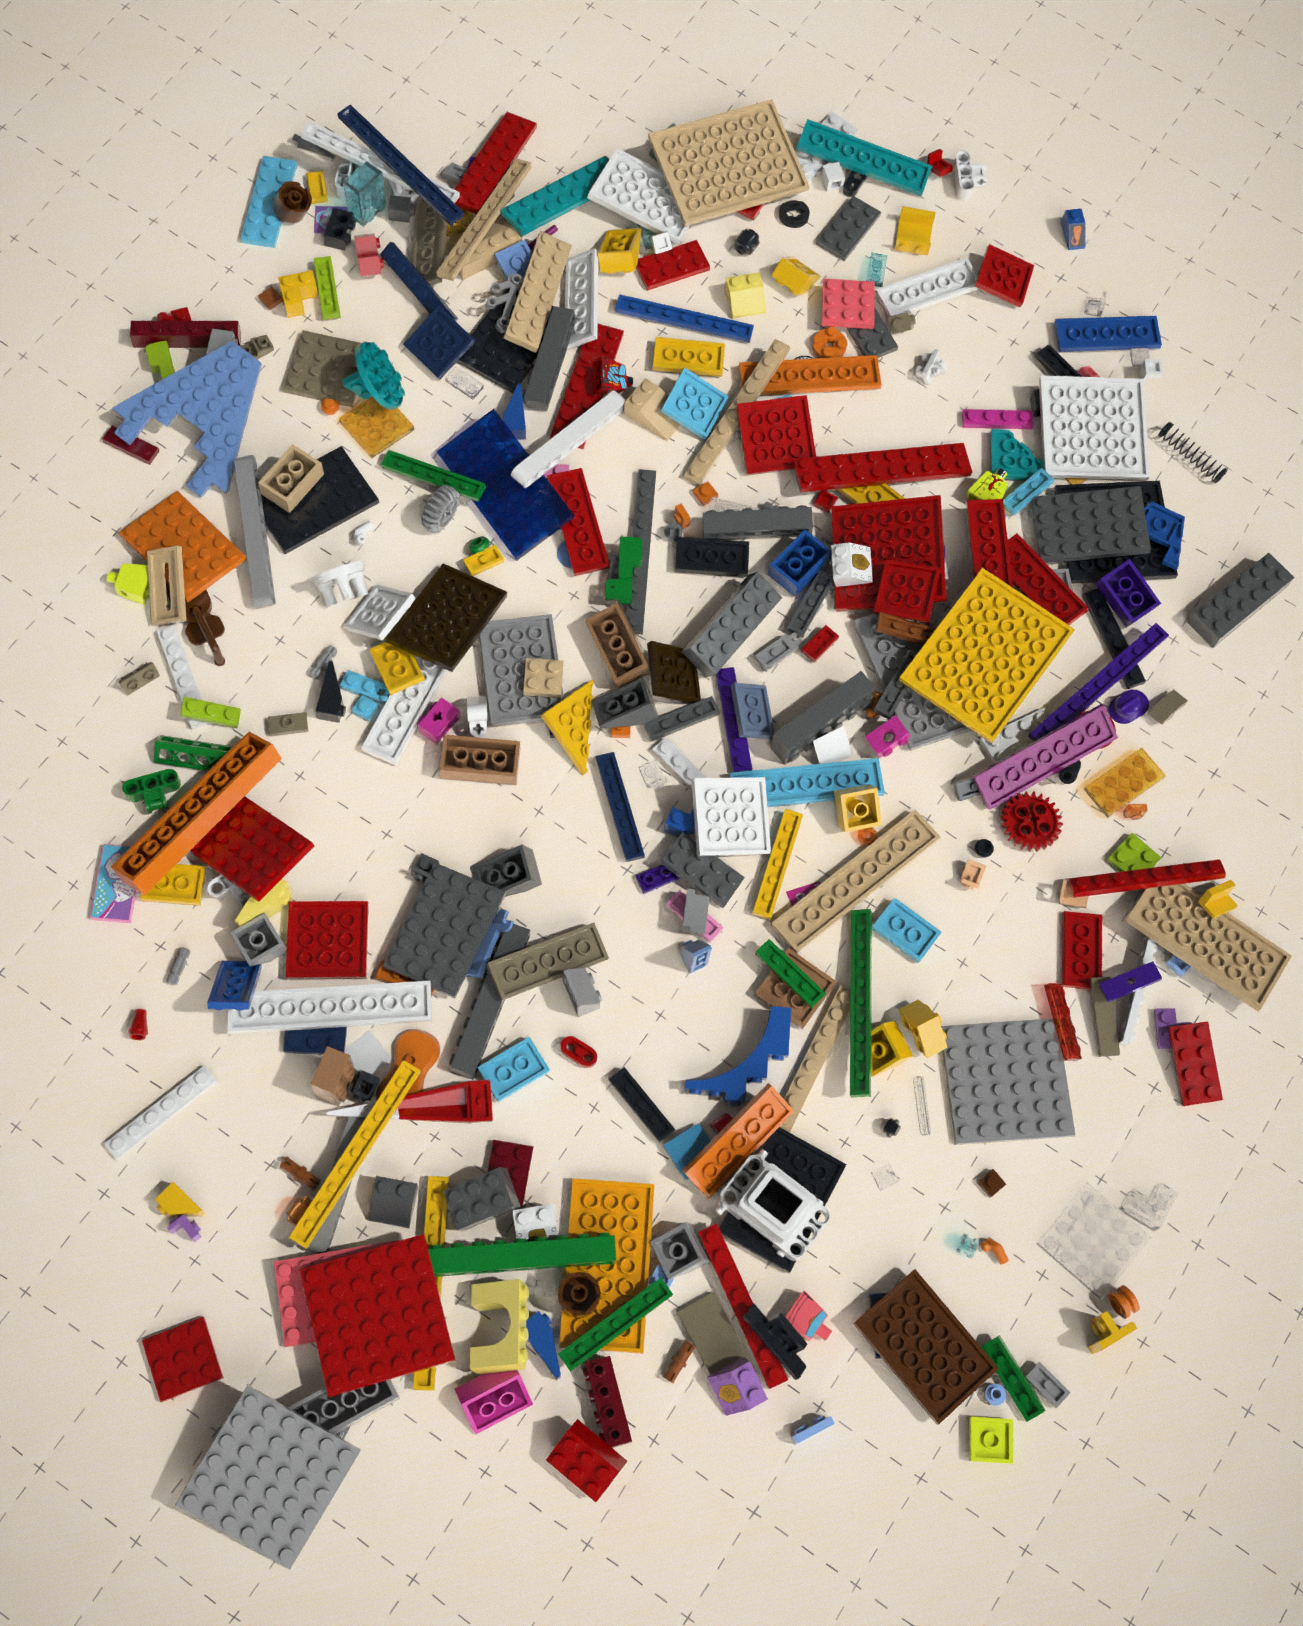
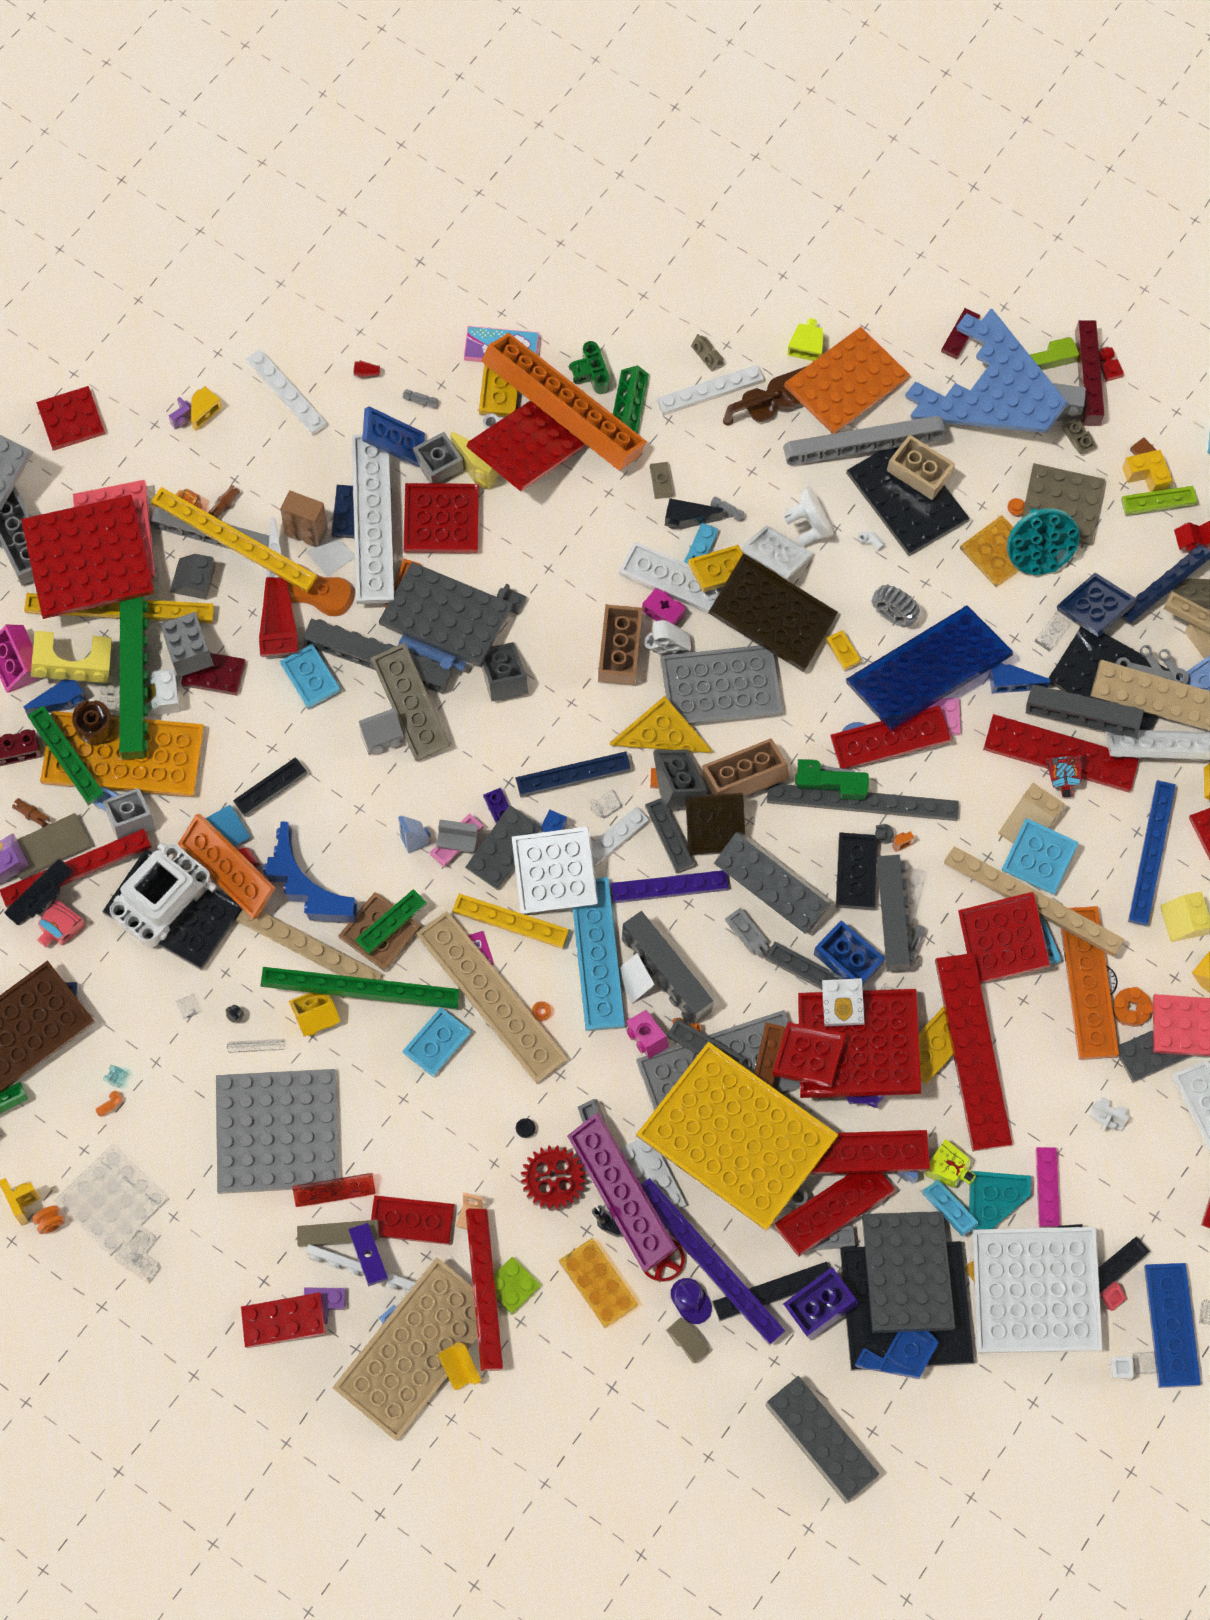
camera: 95 degrees right, 0 degrees up
(157, 585) = (823, 357): tan piece -> none
(210, 712) = (669, 411): lime plate -> none
(365, 708) = (679, 546): medium azure plate -> none
(371, 1082) = (307, 550): black brick -> none
(432, 475) = (936, 600): green plate -> none
(478, 544) = (861, 645): green piece -> none
(543, 677) = (709, 702): tan plate -> none
(568, 439) = (981, 724): white beam -> none
(579, 1052) = (322, 733): red plate -> none
(696, 356) = (1102, 855): yellow plate -> none
(705, 493) = (934, 868): orange plate -> none
(752, 711) = (676, 901): sand blue plate -> none
(820, 643) = (757, 975): red plate -> none
(825, 501) = (930, 992): red tile -> none
(857, 808) = (565, 996): yellow brick -> none
(902, 322) = (1165, 1086): dark tan bracket -> none
(925, 1027) = (331, 1046): yellow brick -> none
(972, 874) = (494, 1111): light nougat bracket -> none
(991, 1183) = (175, 1107): reddish brown plate -> none
(1135, 811) = (563, 1289): clear orange plate -> none
(1165, 430) = (984, 1435): black piece -> none

